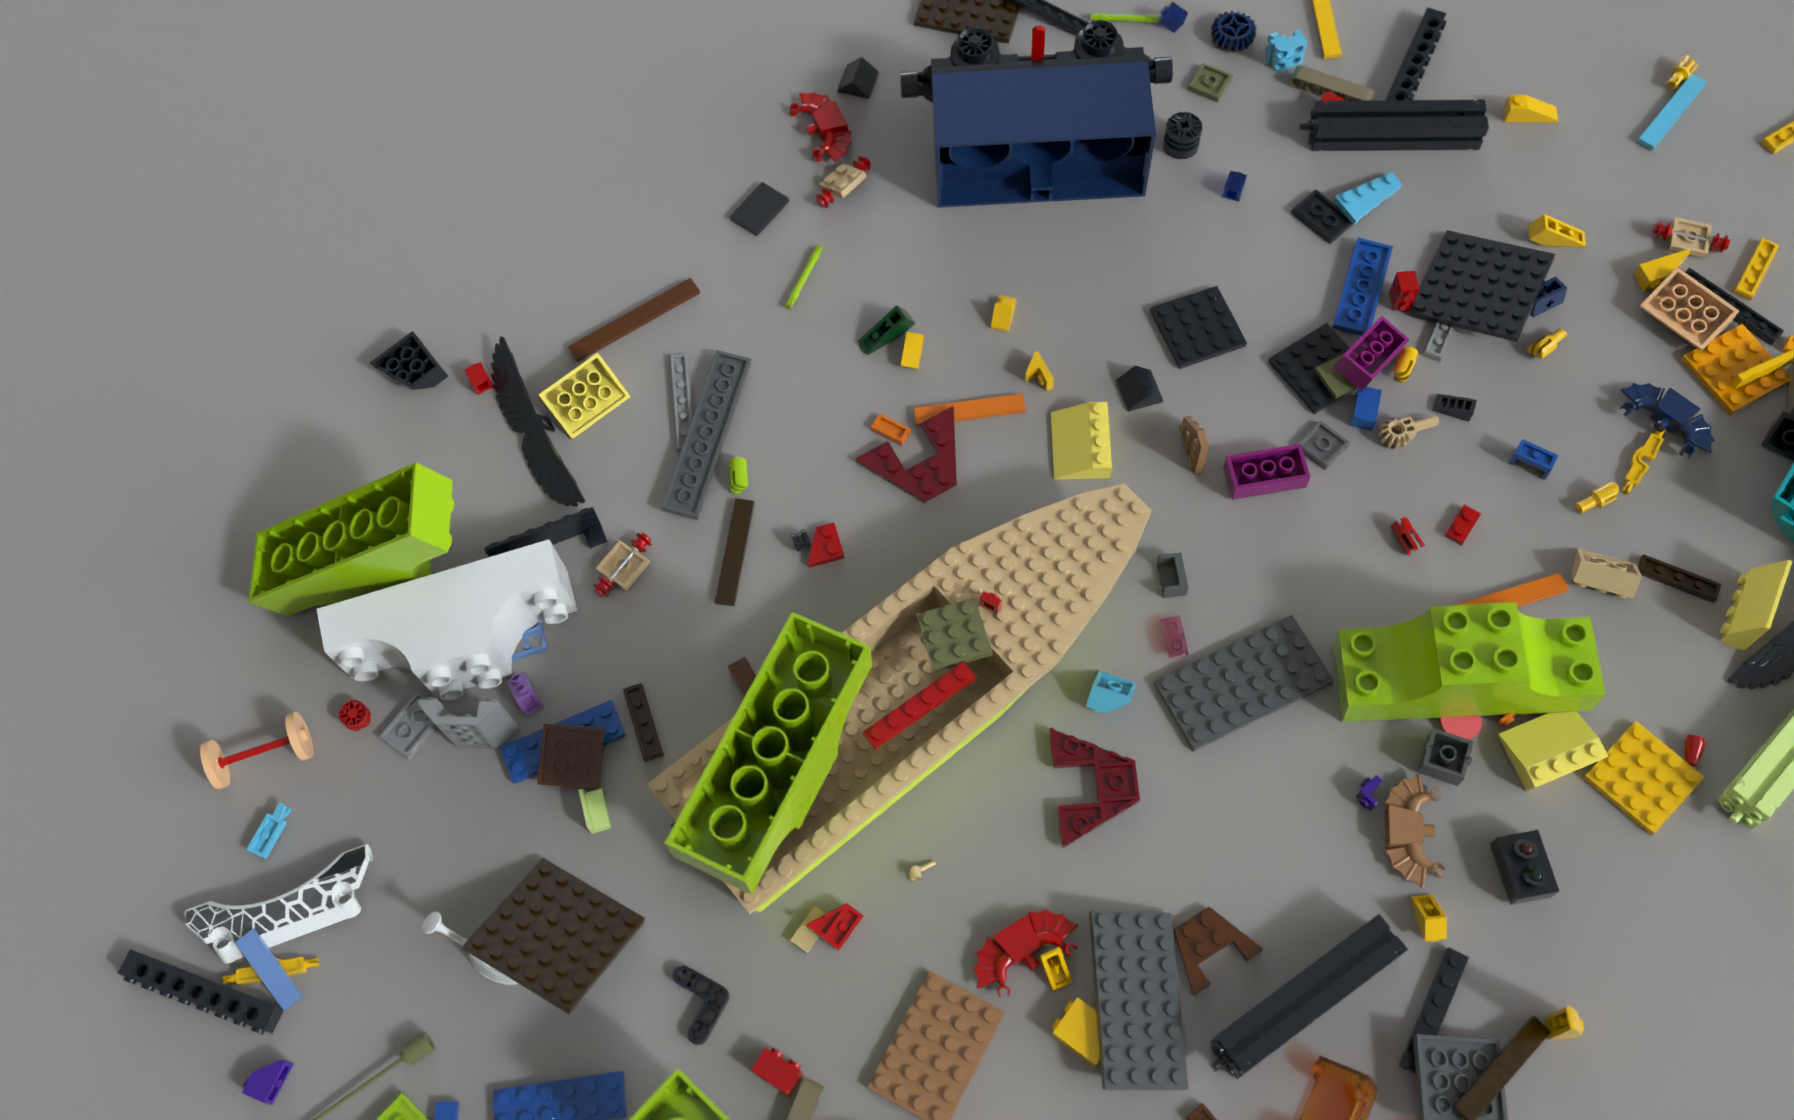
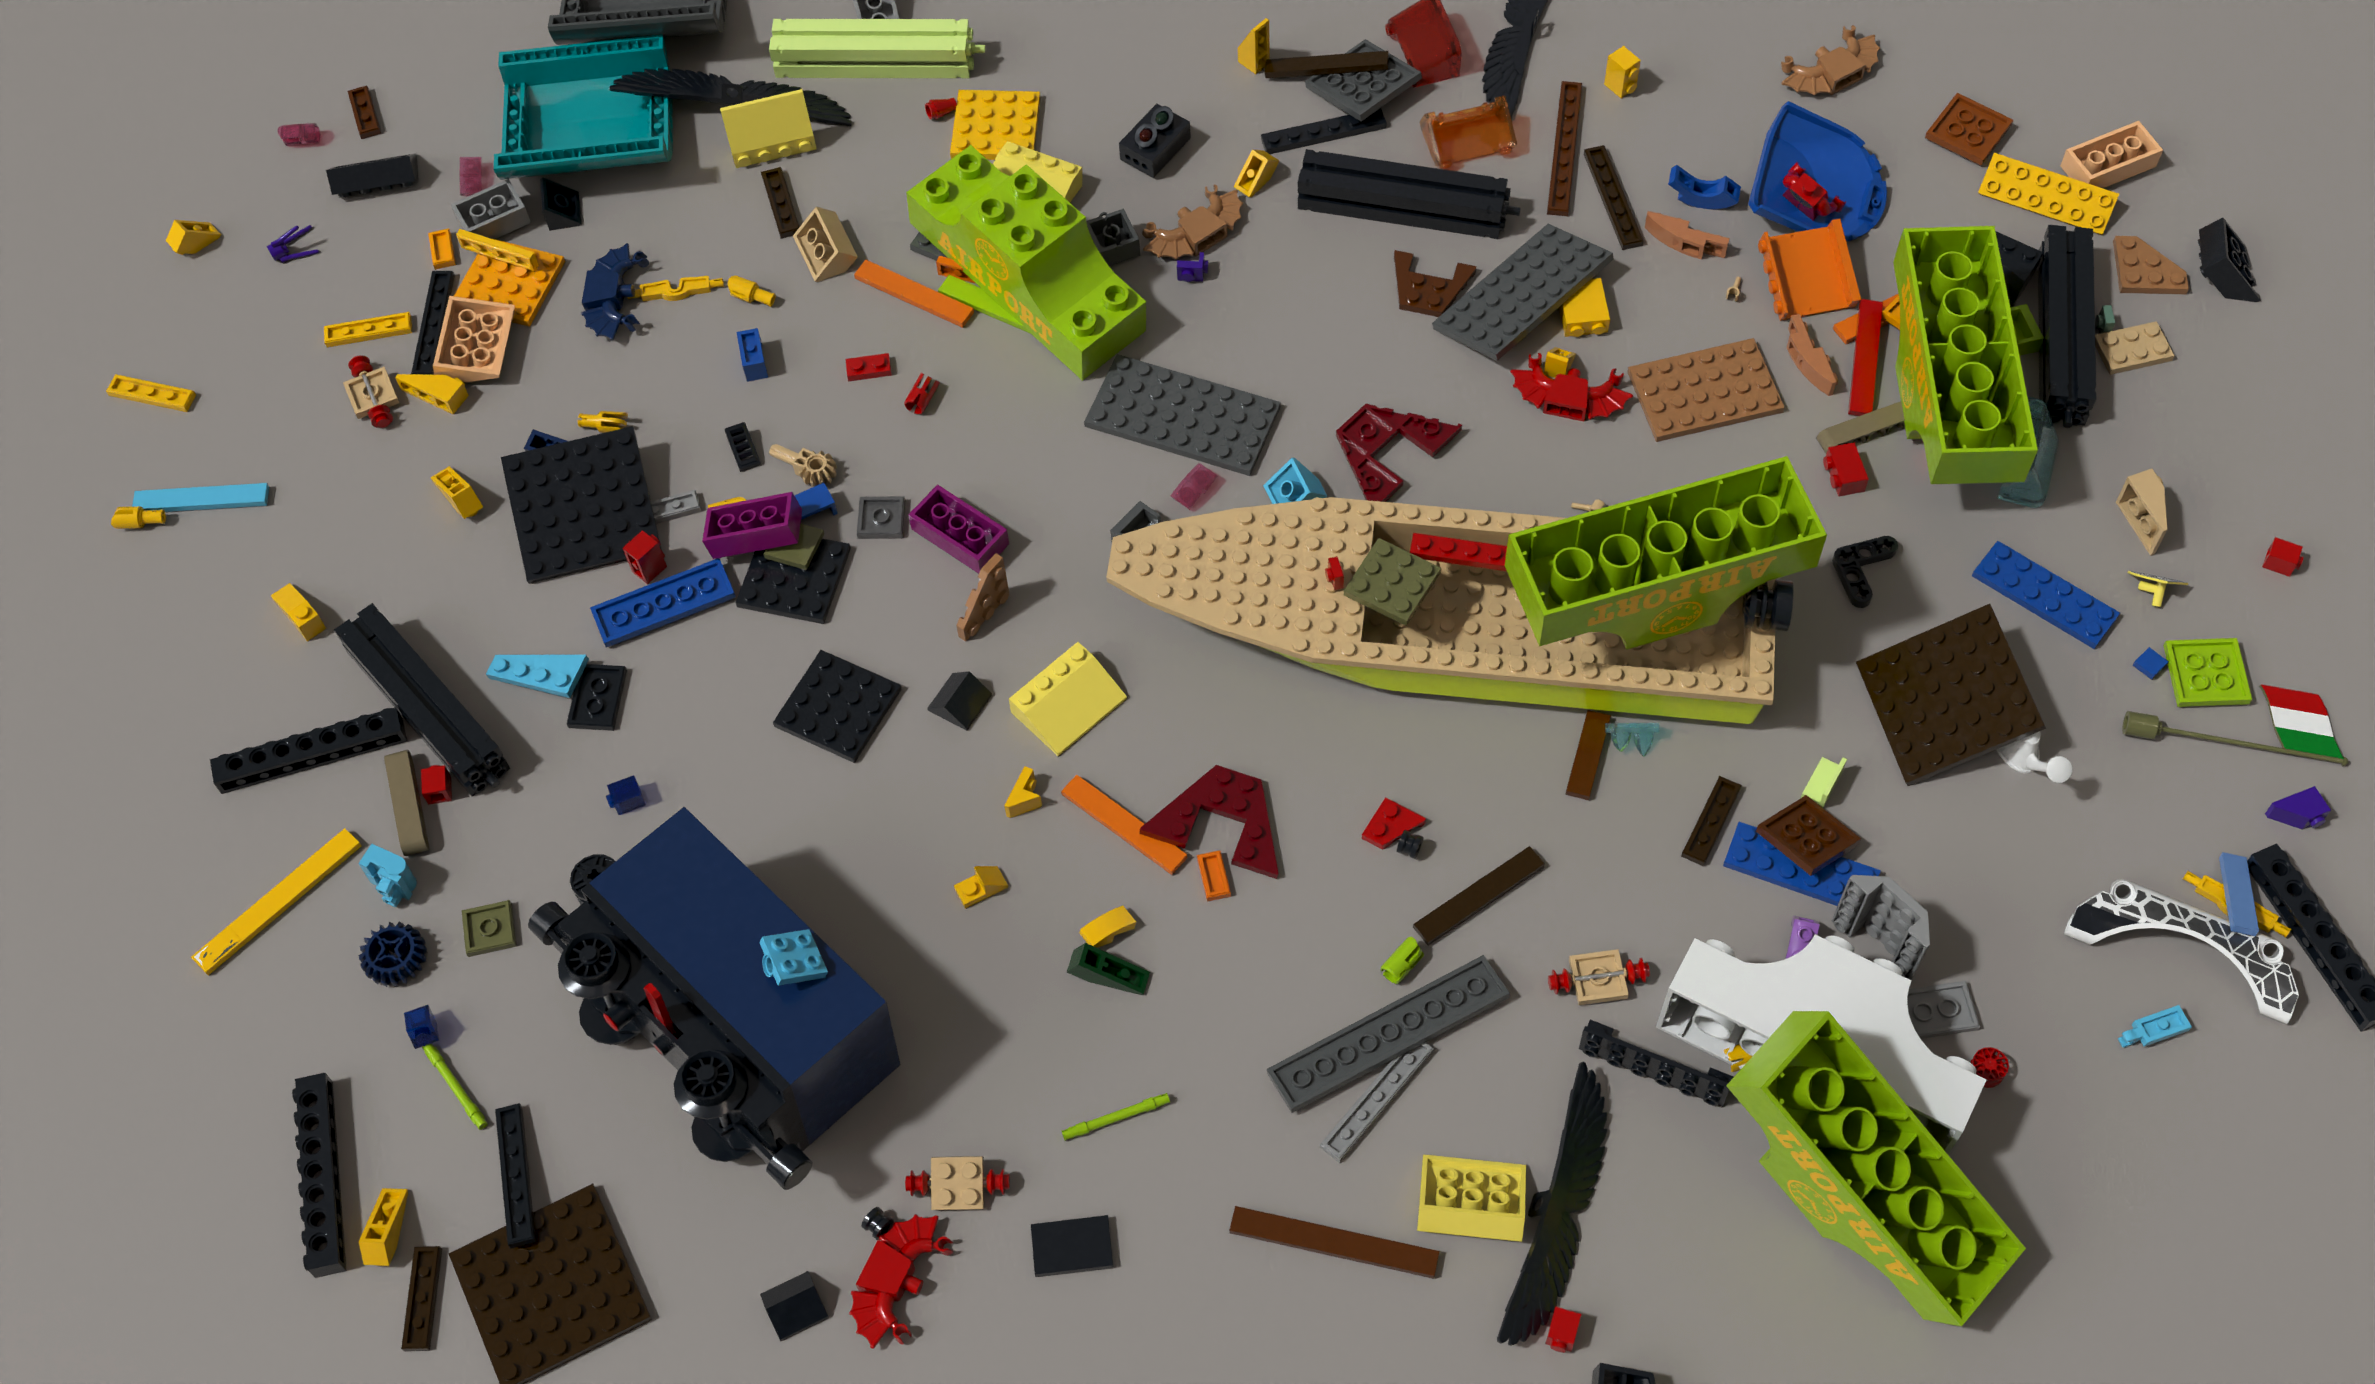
camera: 135 degrees left, 5 degrees down
(216, 764) = (2171, 1125): light nougat piece -> none
(859, 135) = (877, 1222): none -> black wheel
(1000, 113) = (792, 957): none -> medium azure plate

